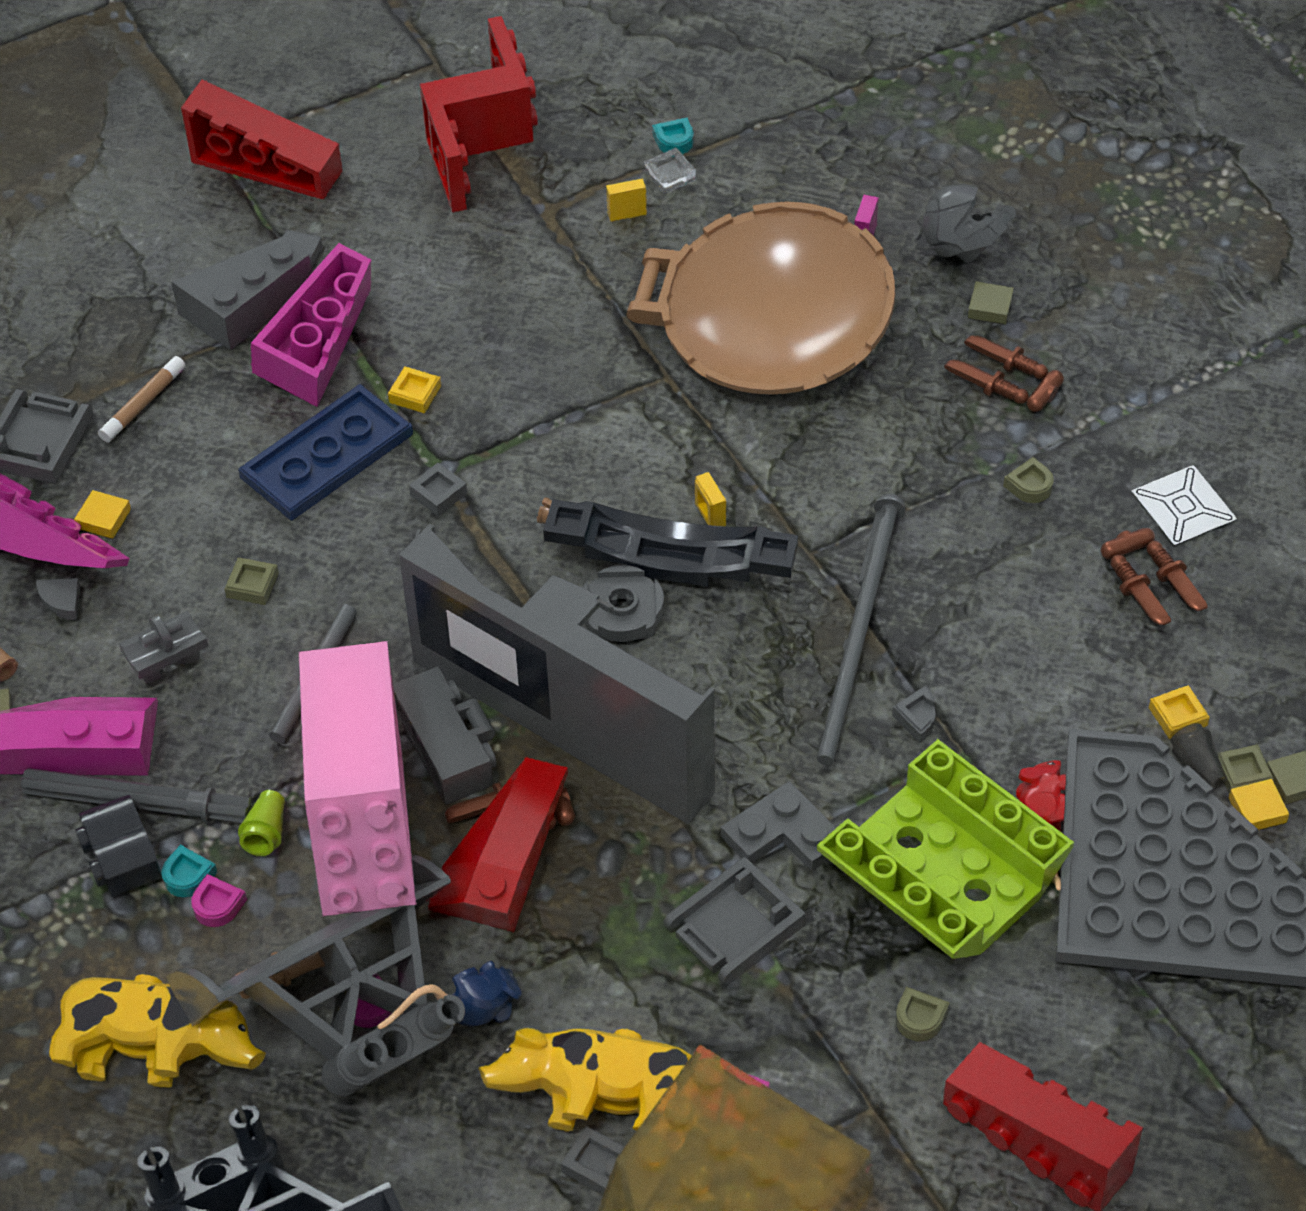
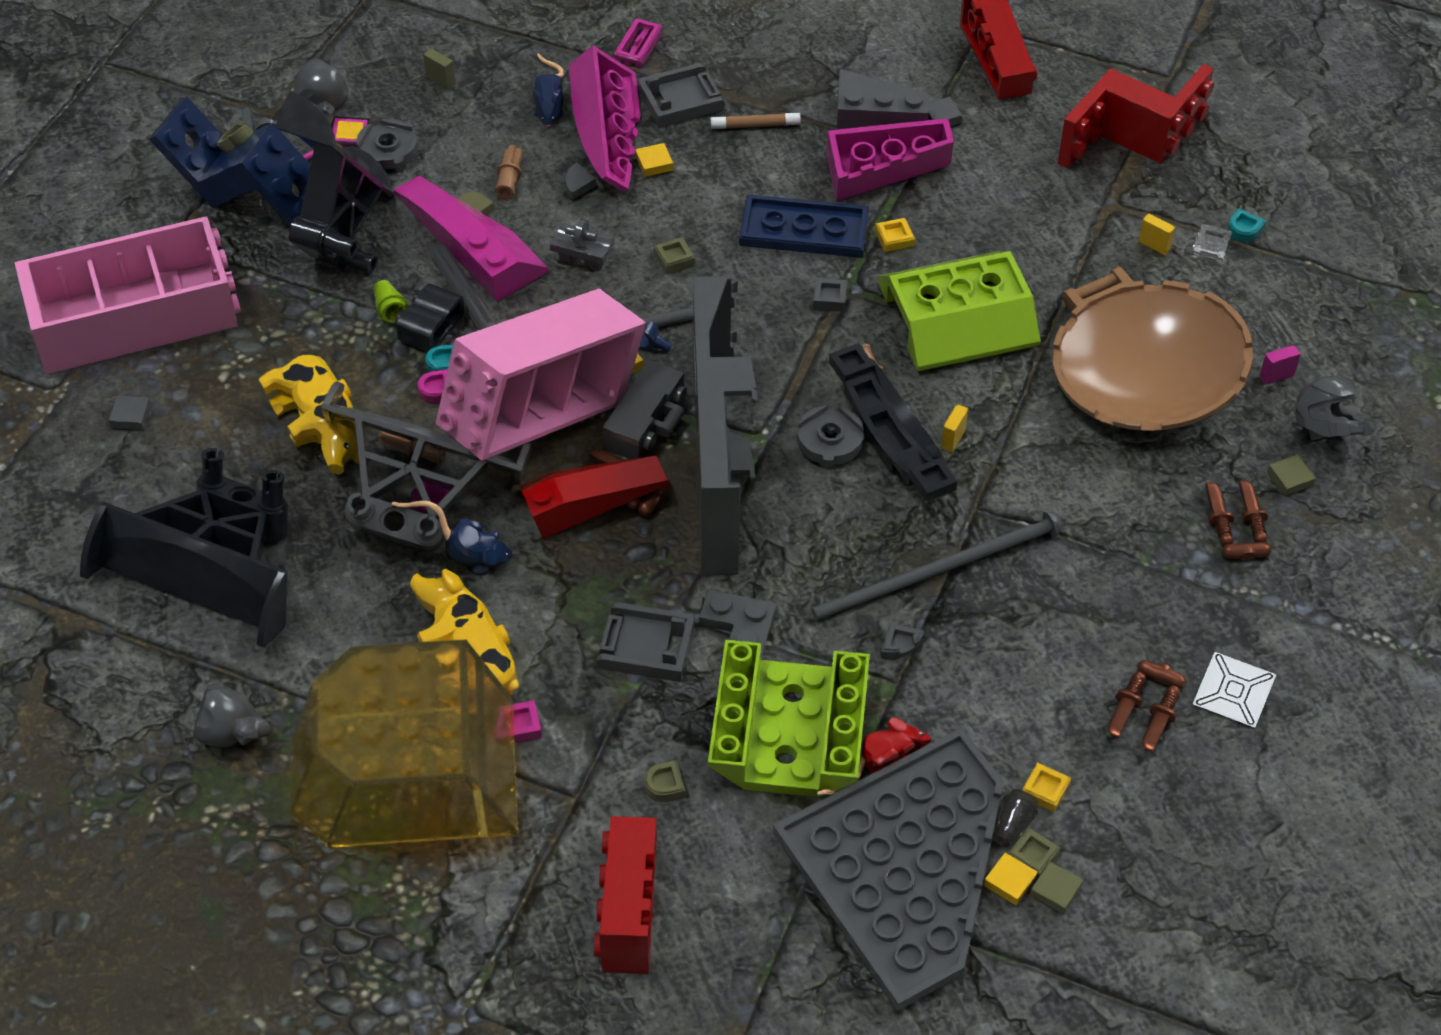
camera: 50 degrees right, 0 degrees up
(54, 870) = (388, 301): none -> lime cone
(594, 395) = (966, 315): none -> lime slope
(1030, 482) = (1158, 589): olive tile -> none

